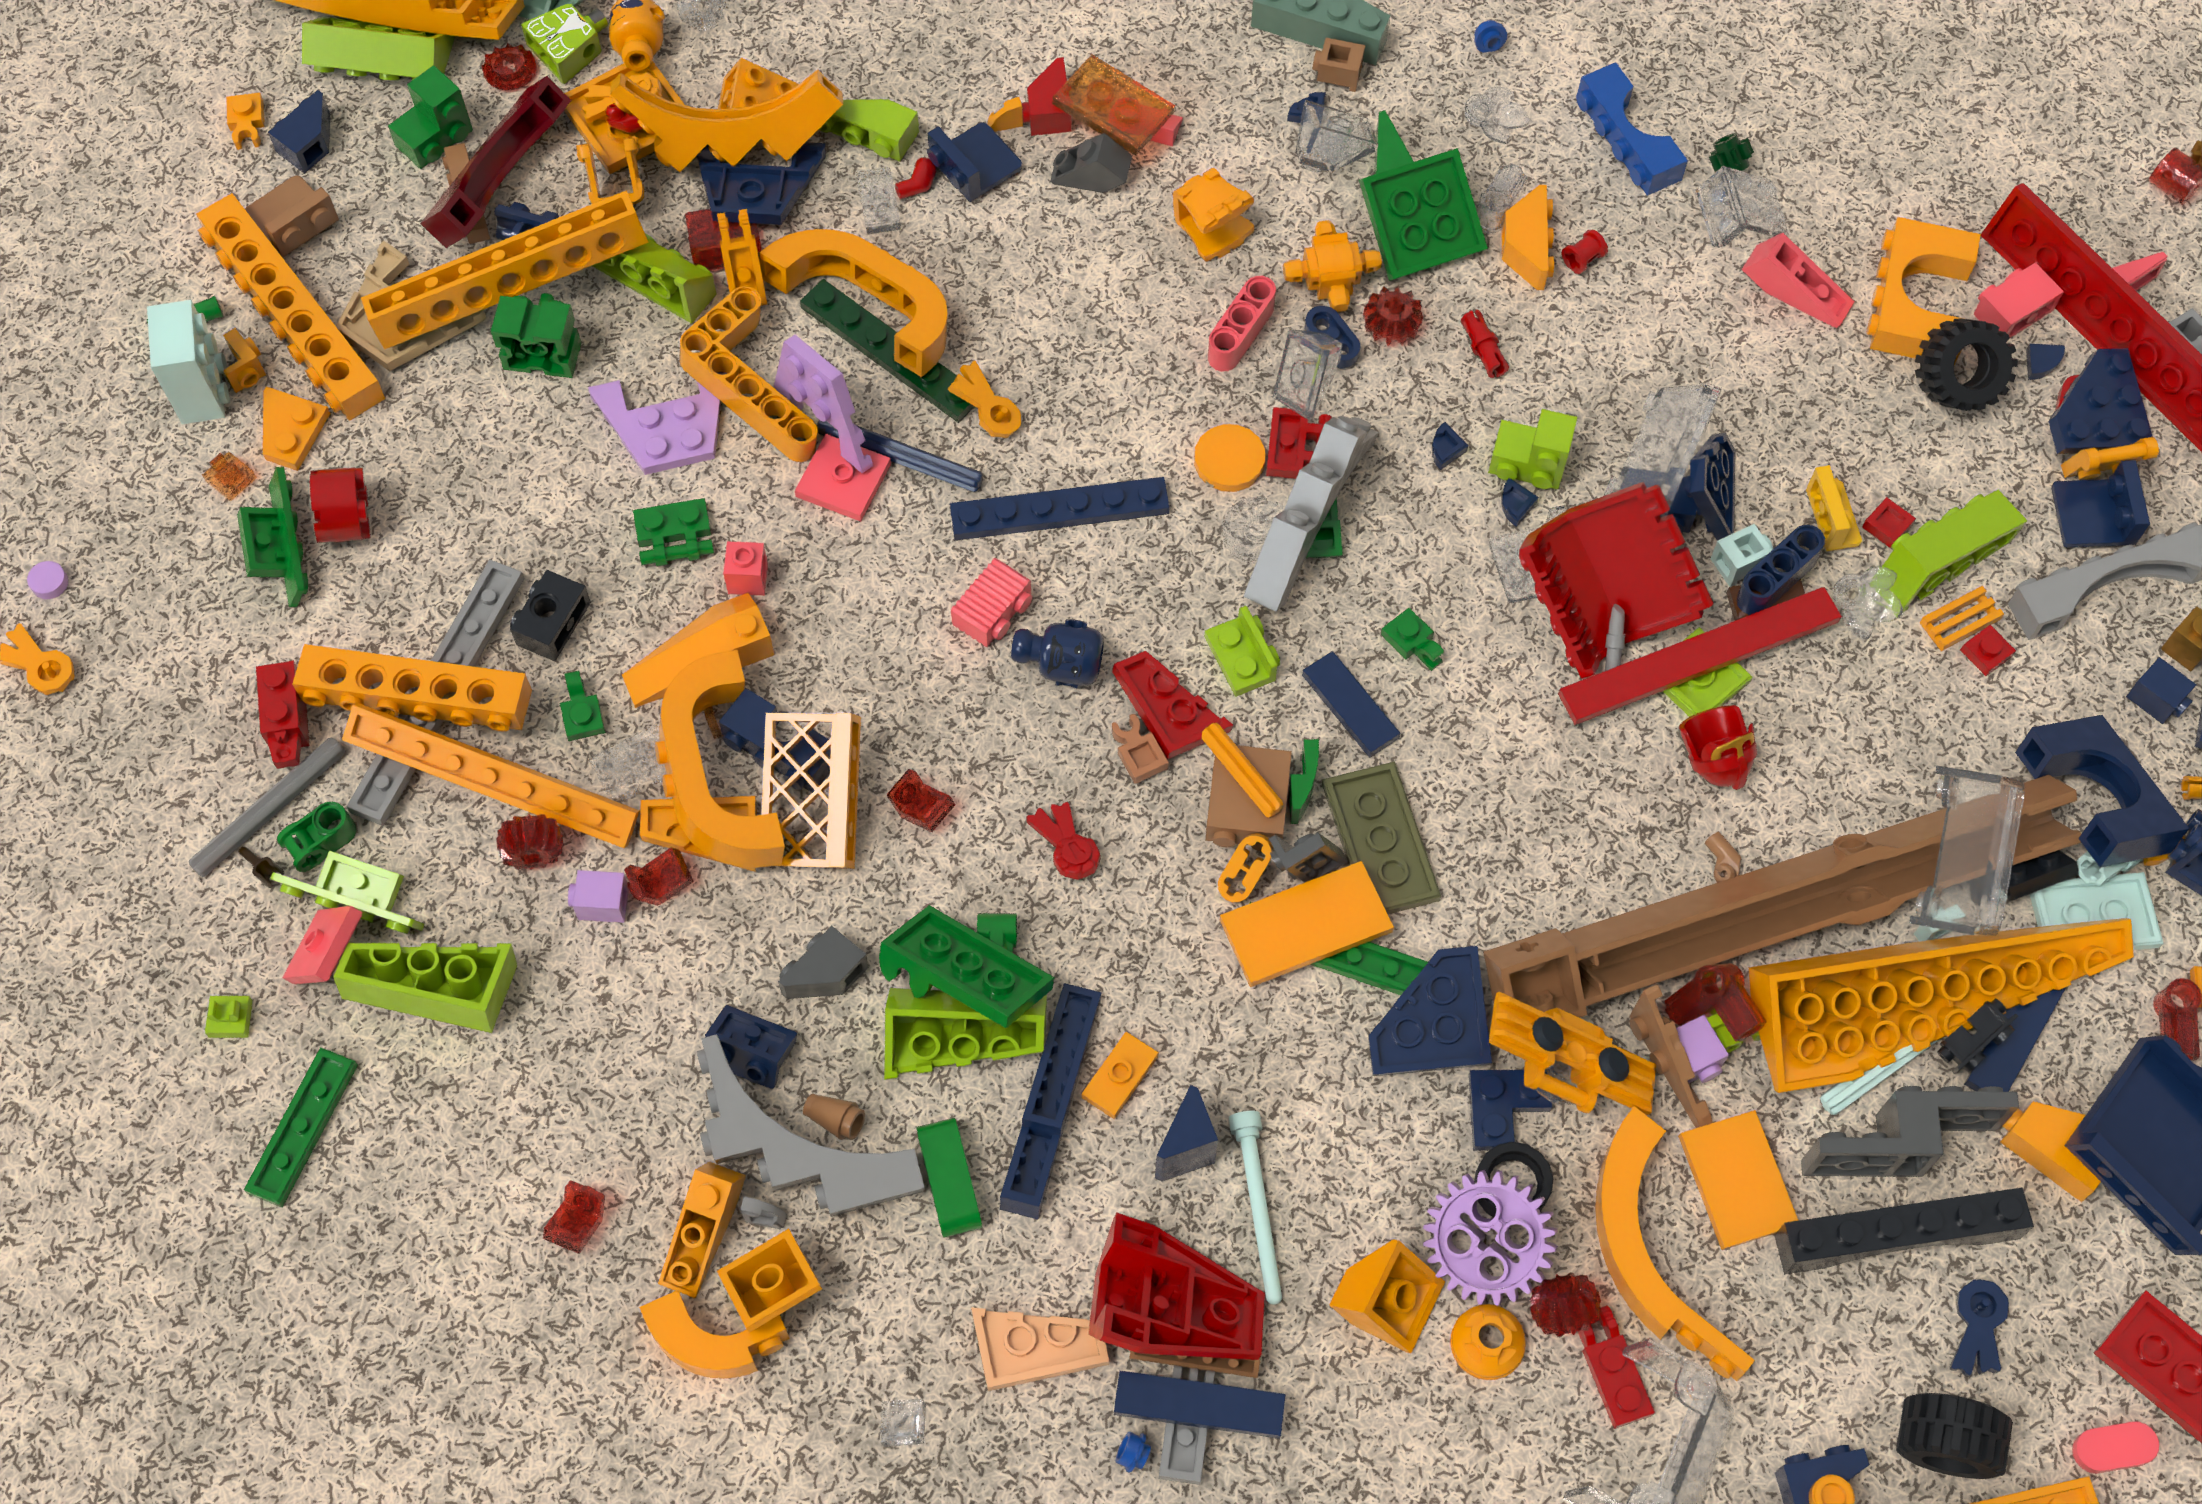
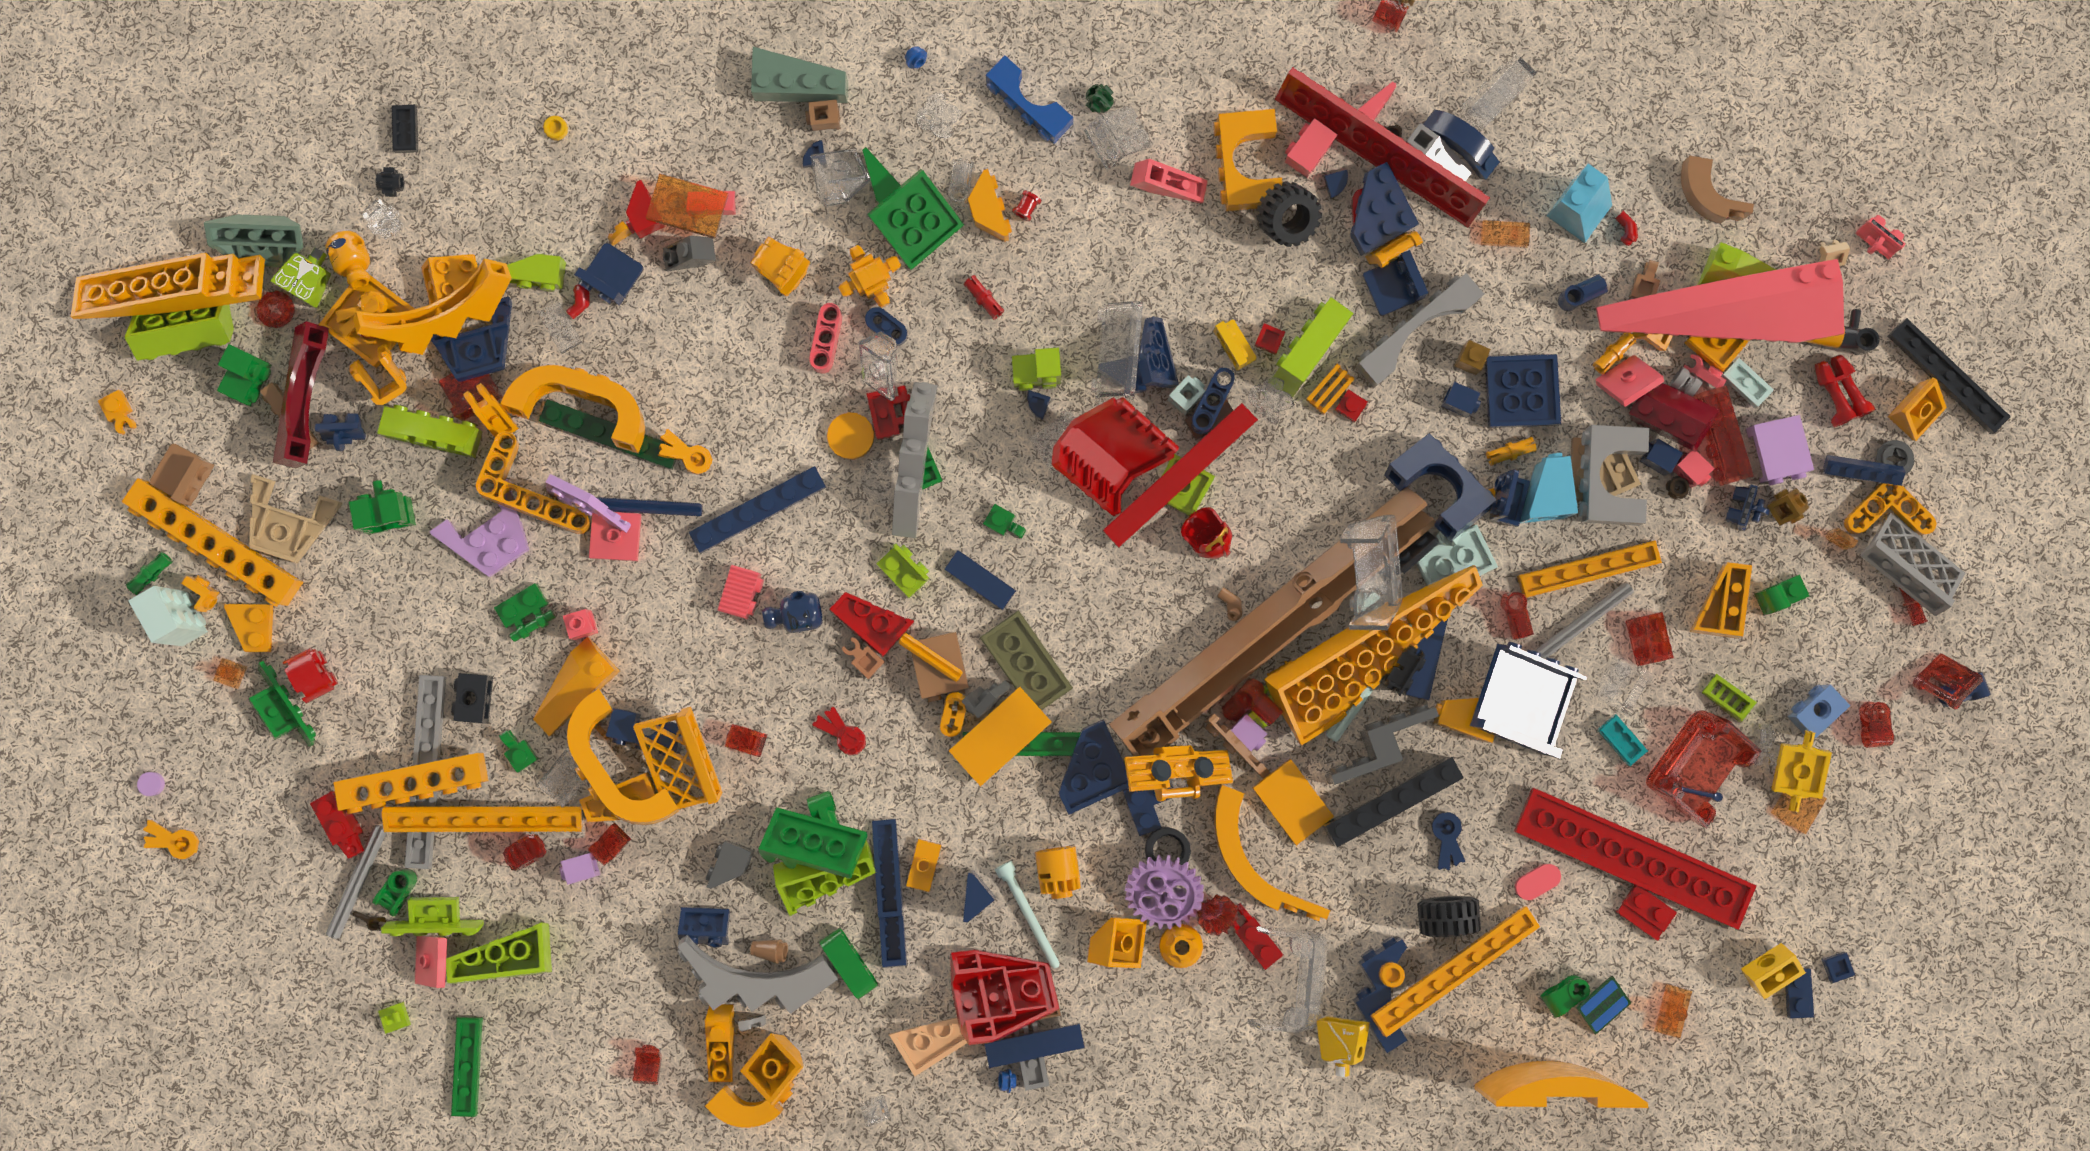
camera: 20 degrees left, 20 degrees up
(304, 133) = (163, 410): dark blue slope -> none
(504, 270) = (343, 479): light orange brick -> none
(1302, 784) = (969, 650): green slope -> none
(1330, 1146) = (1058, 871): none -> light orange gear
(1393, 315) = (927, 292): clear red gear -> none
(1447, 446) = (983, 379): dark blue tile -> none
(1615, 638) = (1126, 484): light grey piece -> none

